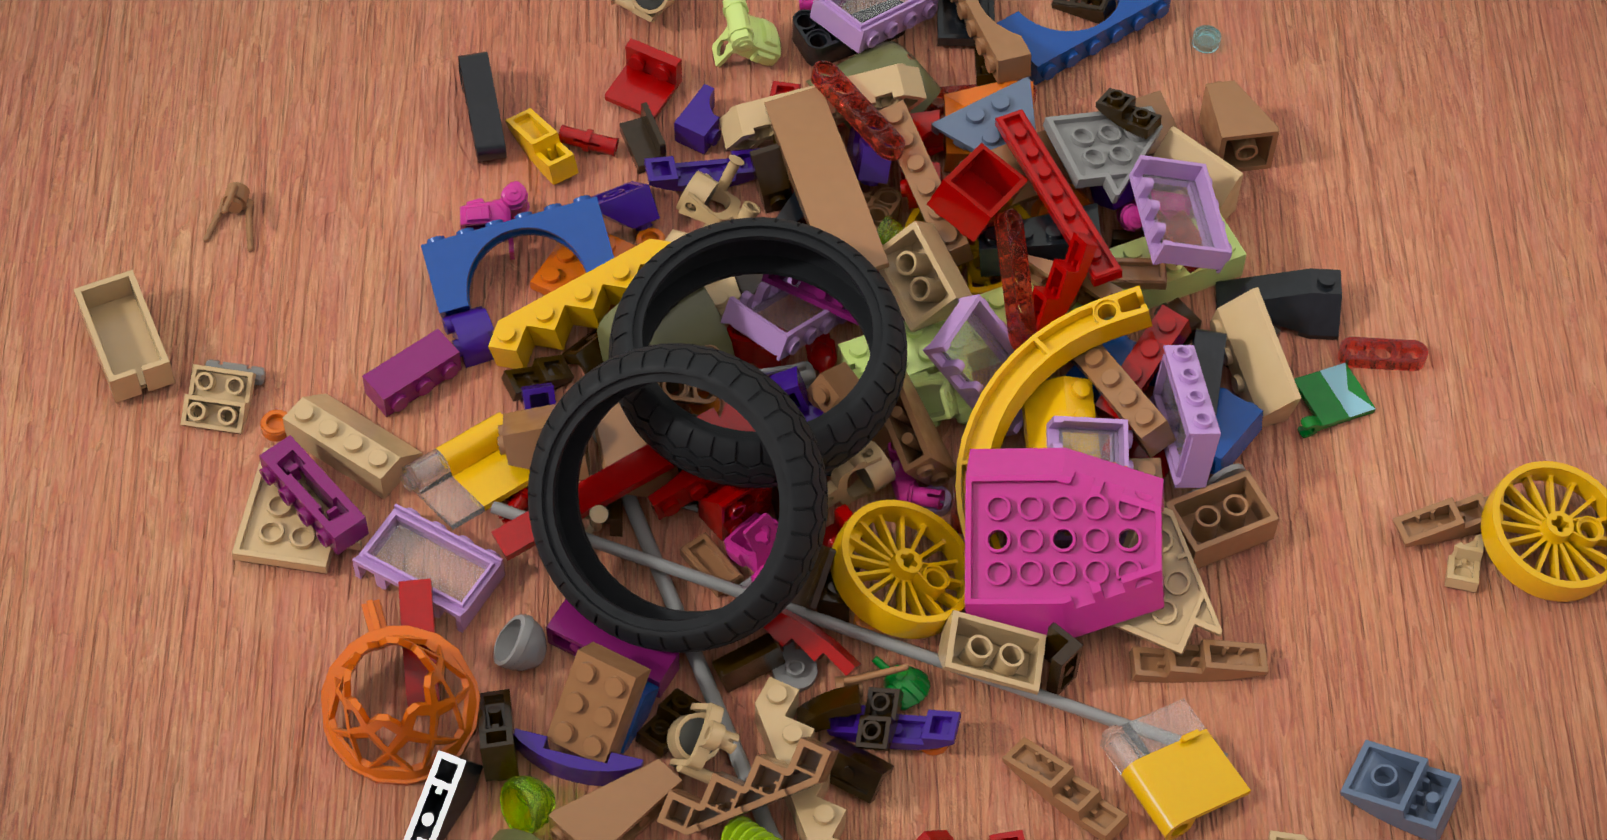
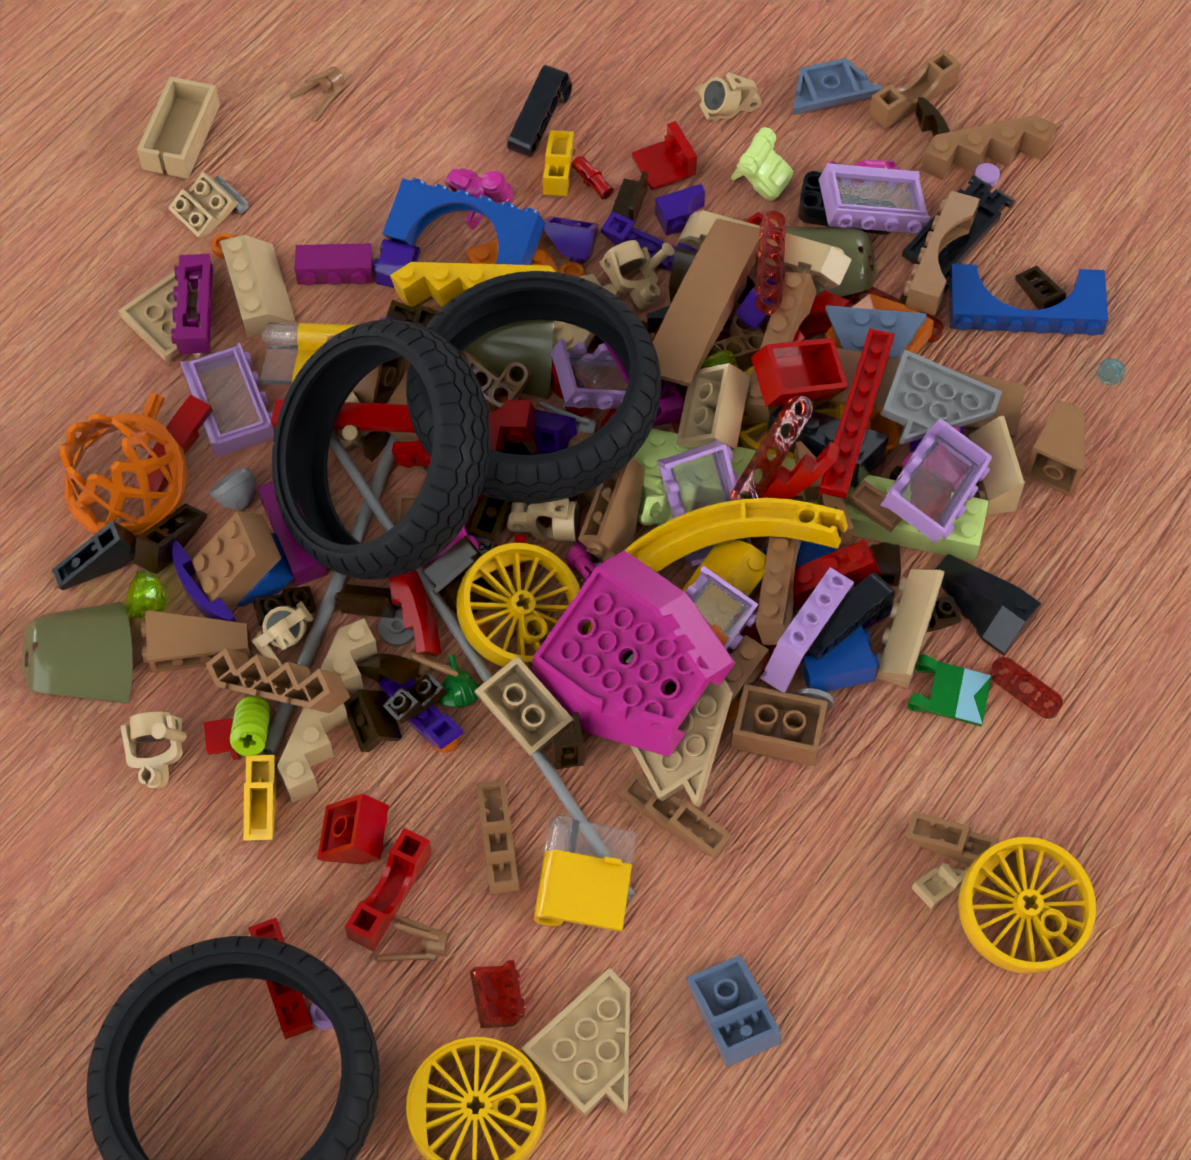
camera: 40 degrees right, 5 degrees up
(1121, 110) = (971, 384): dark brown slope -> none

